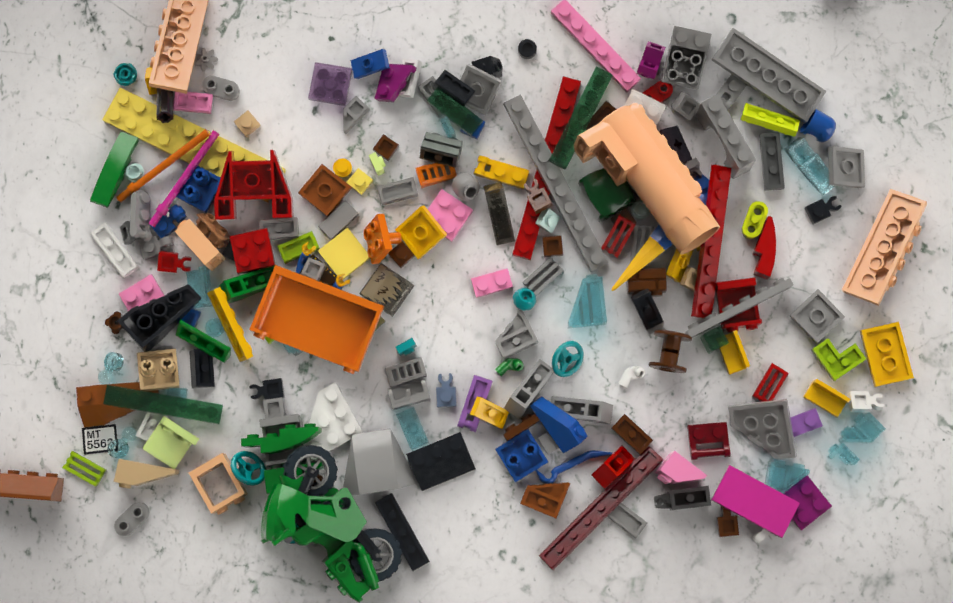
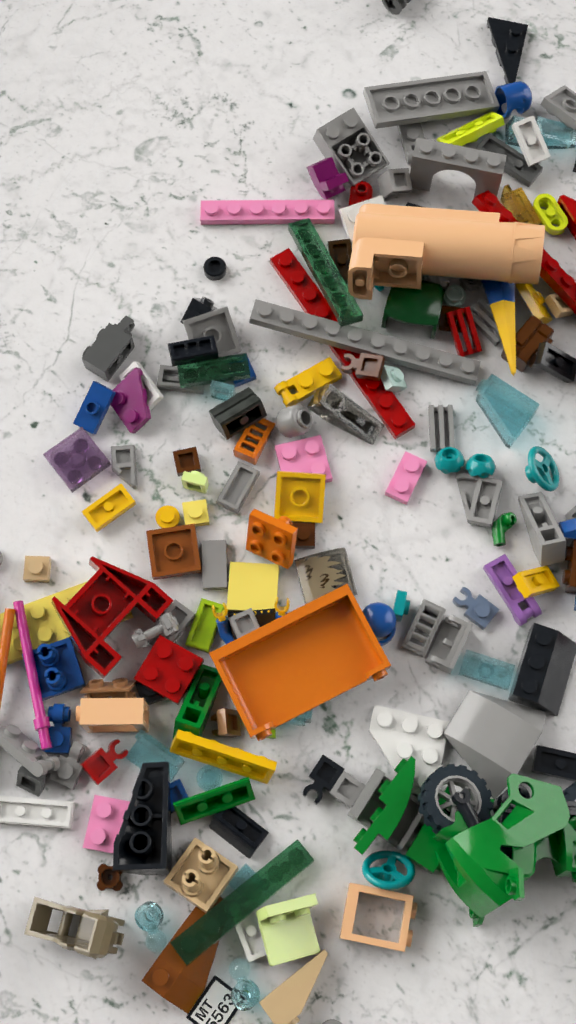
camera: 55 degrees left, 10 degrees down
(78, 342) = (94, 934): none -> dark tan animal
(250, 309) = (228, 723): none -> medium nougat tile
(276, 226) = (167, 625): none -> light grey bar
(317, 129) = (109, 507): none -> yellow plate
(384, 343) = (381, 620): none -> blue helmet
(416, 37) = (110, 349): none -> dark grey hinge
(536, 320) = (480, 465): none -> teal plate
(552, 246) = (420, 395): reddish brown plate -> none
(741, 199) = (519, 205): none -> clear yellow panel
(792, 164) = (531, 141): none -> white plate
(867, 86) = (509, 41): none -> black wing

